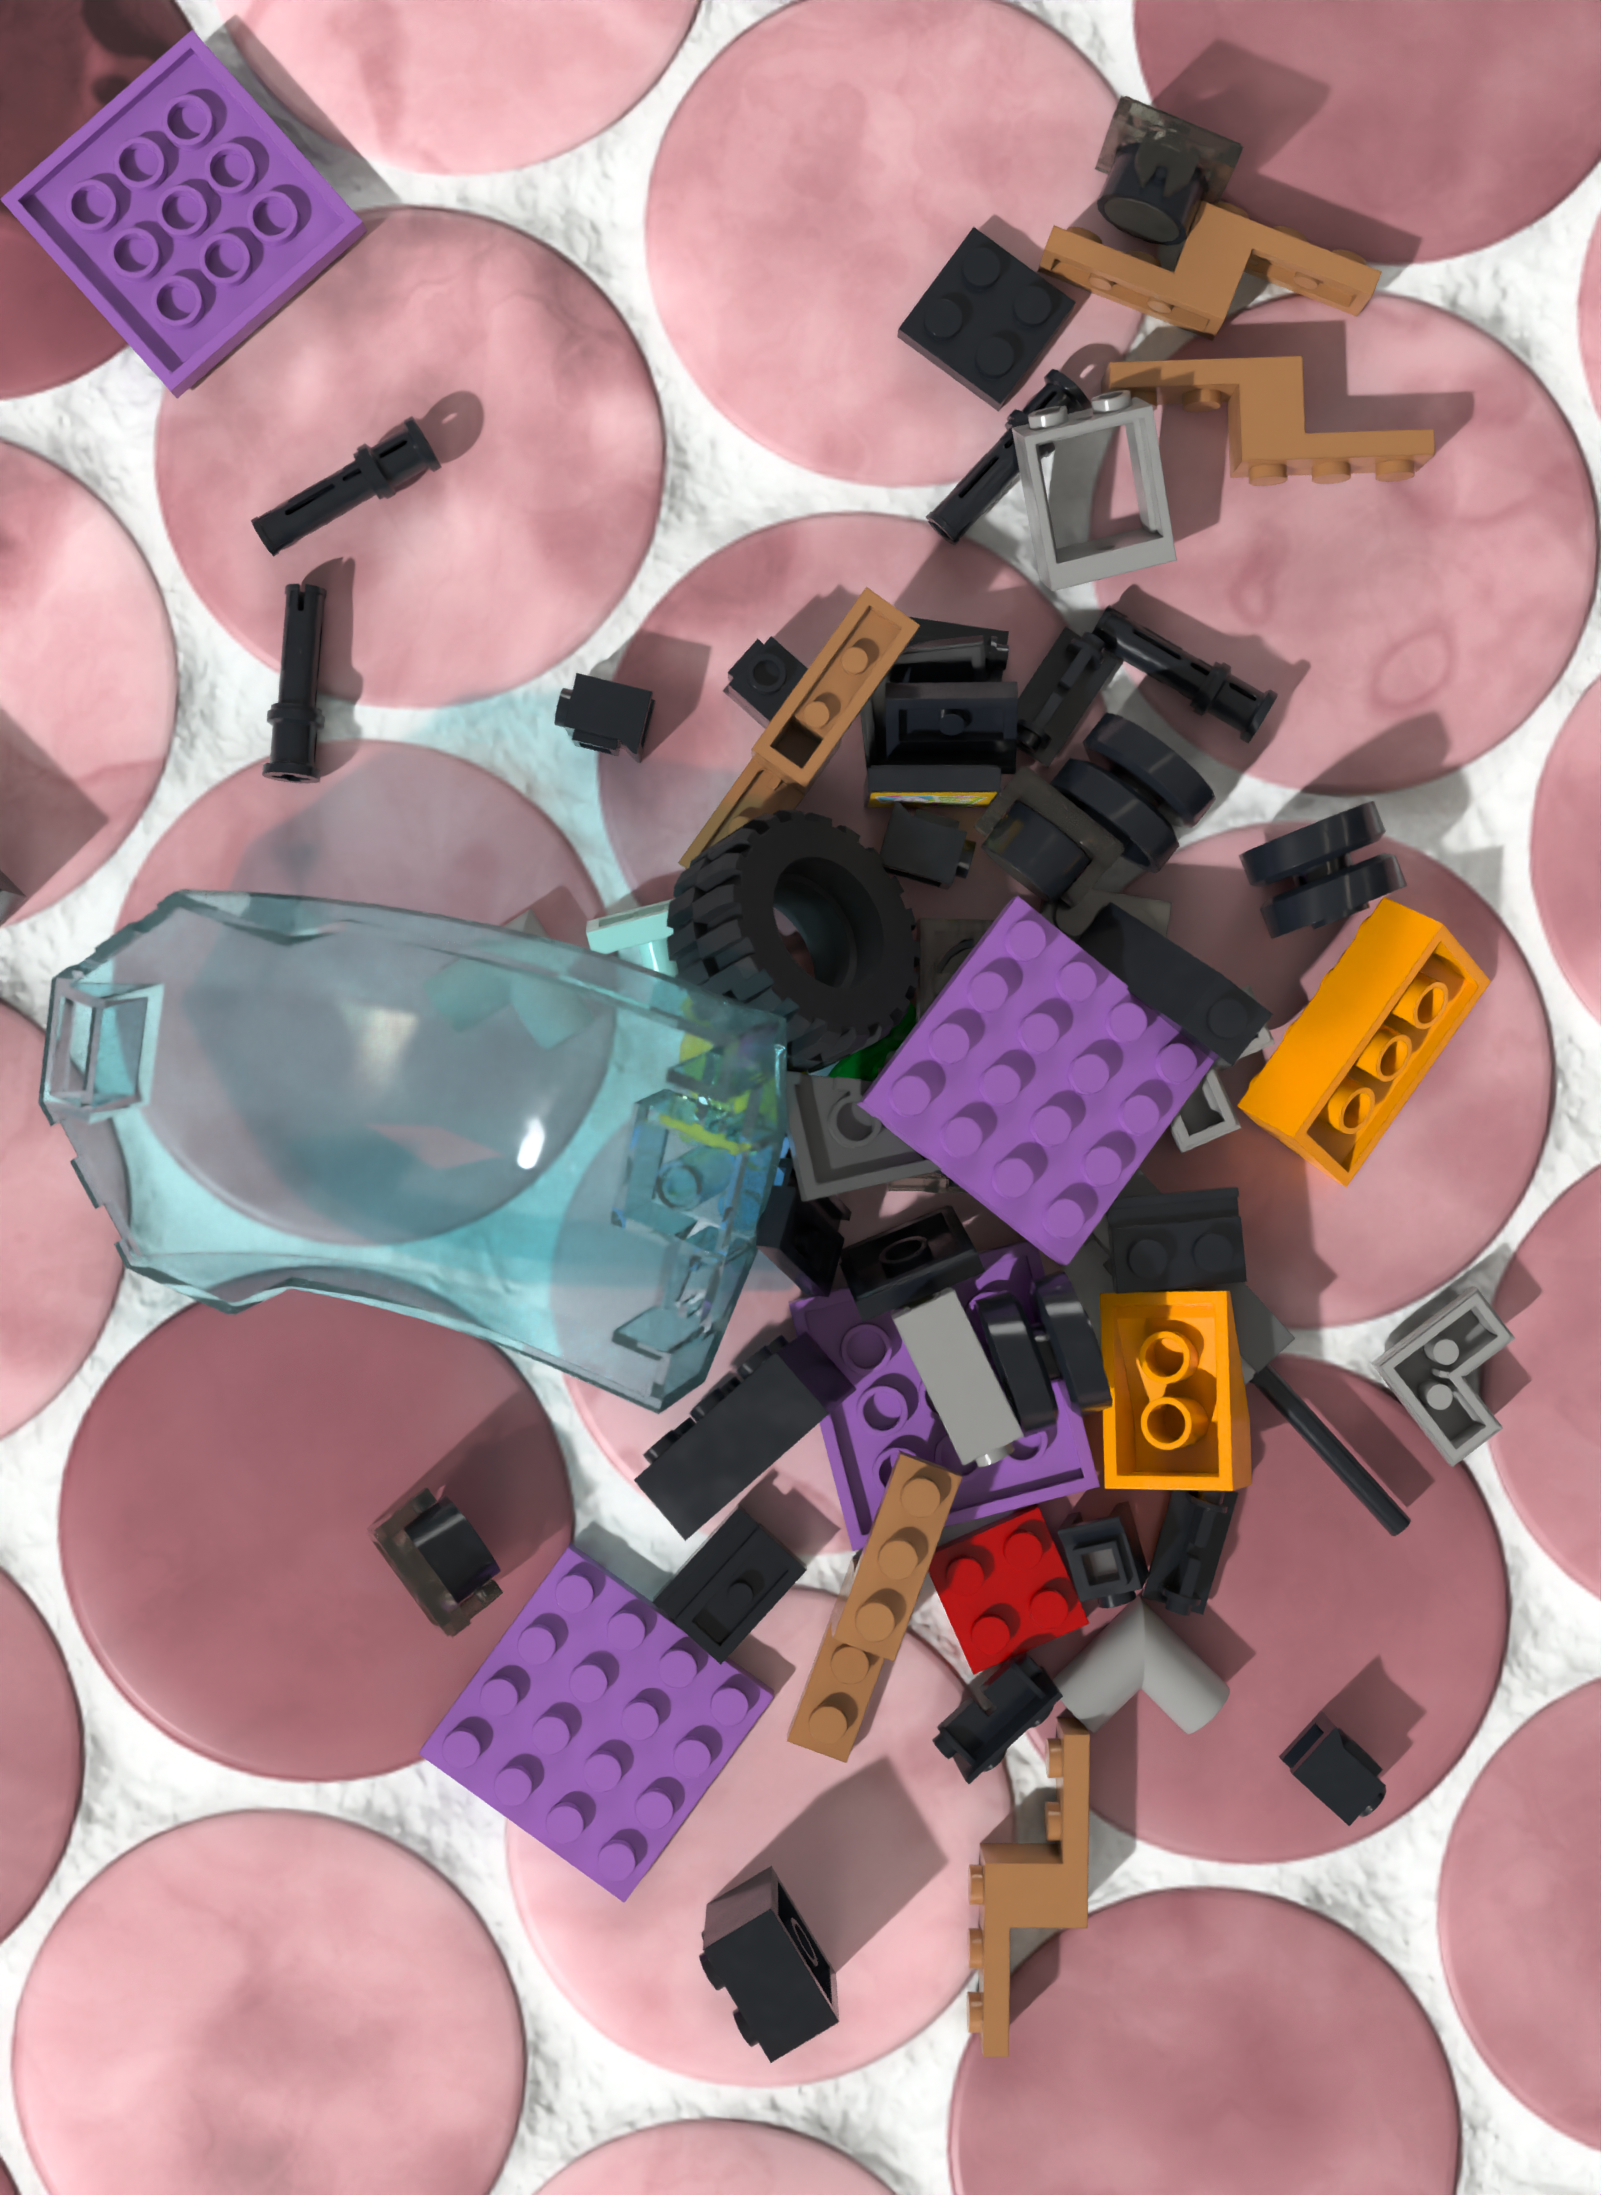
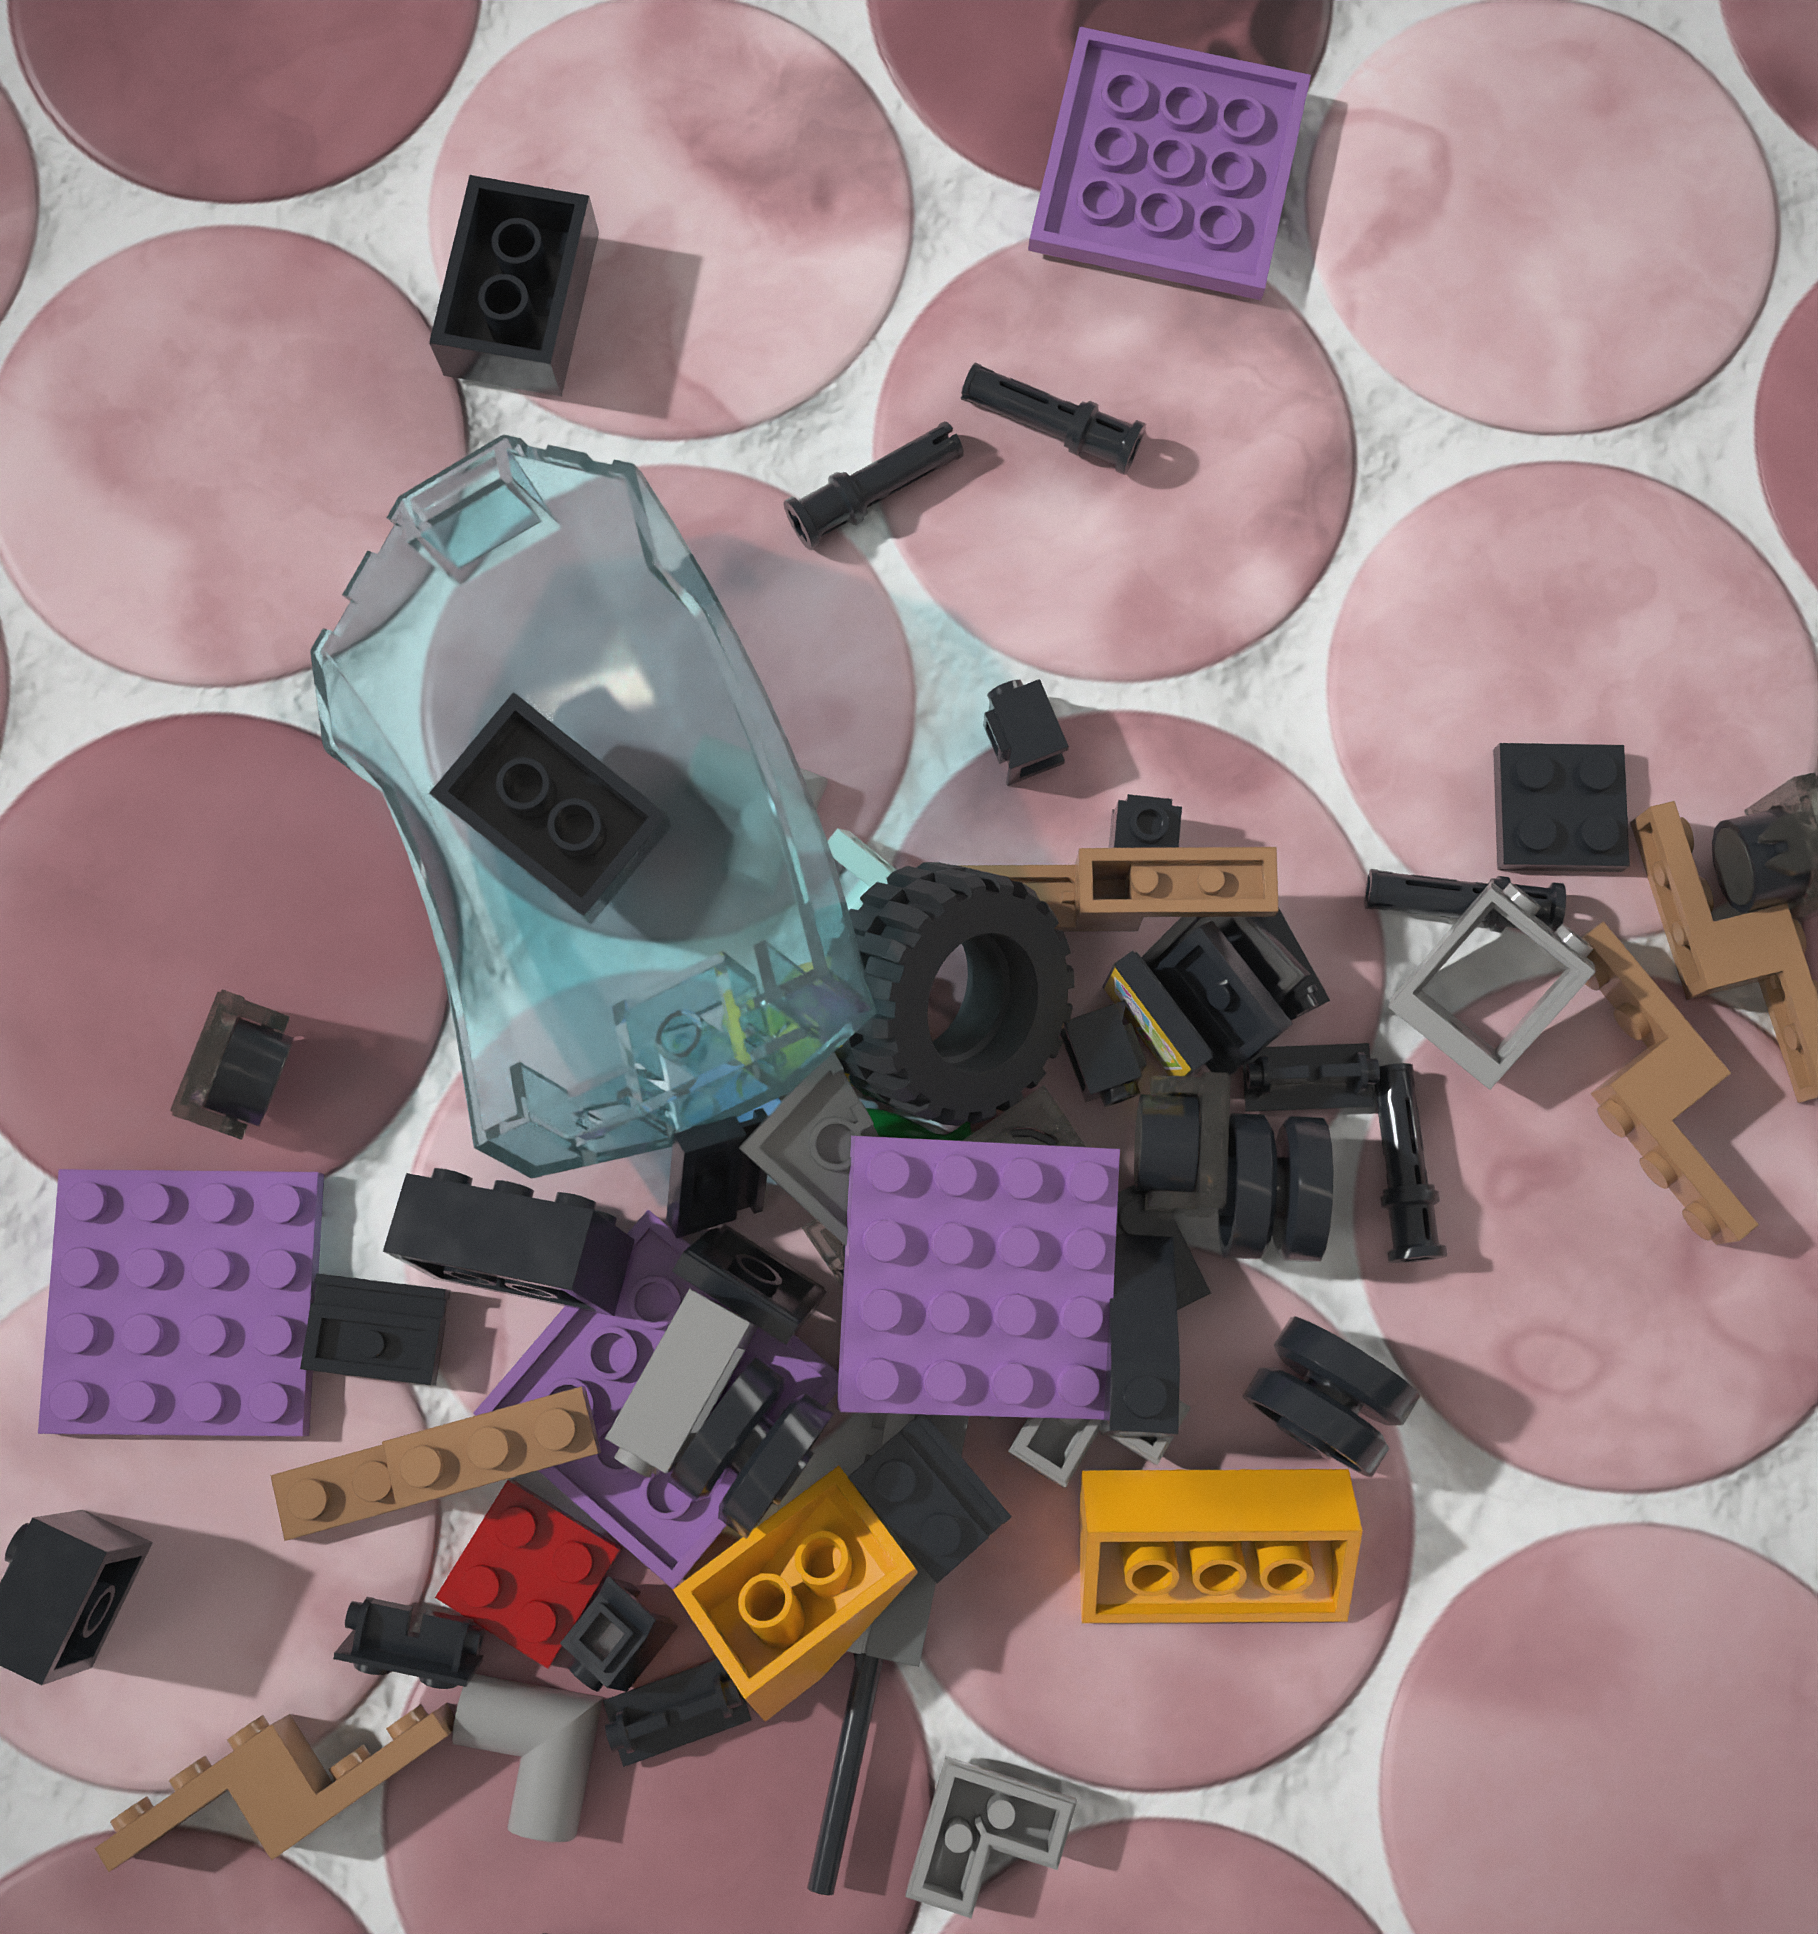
camera: 55 degrees right, 10 degrees down
(405, 1159) = (551, 808): none -> black brick

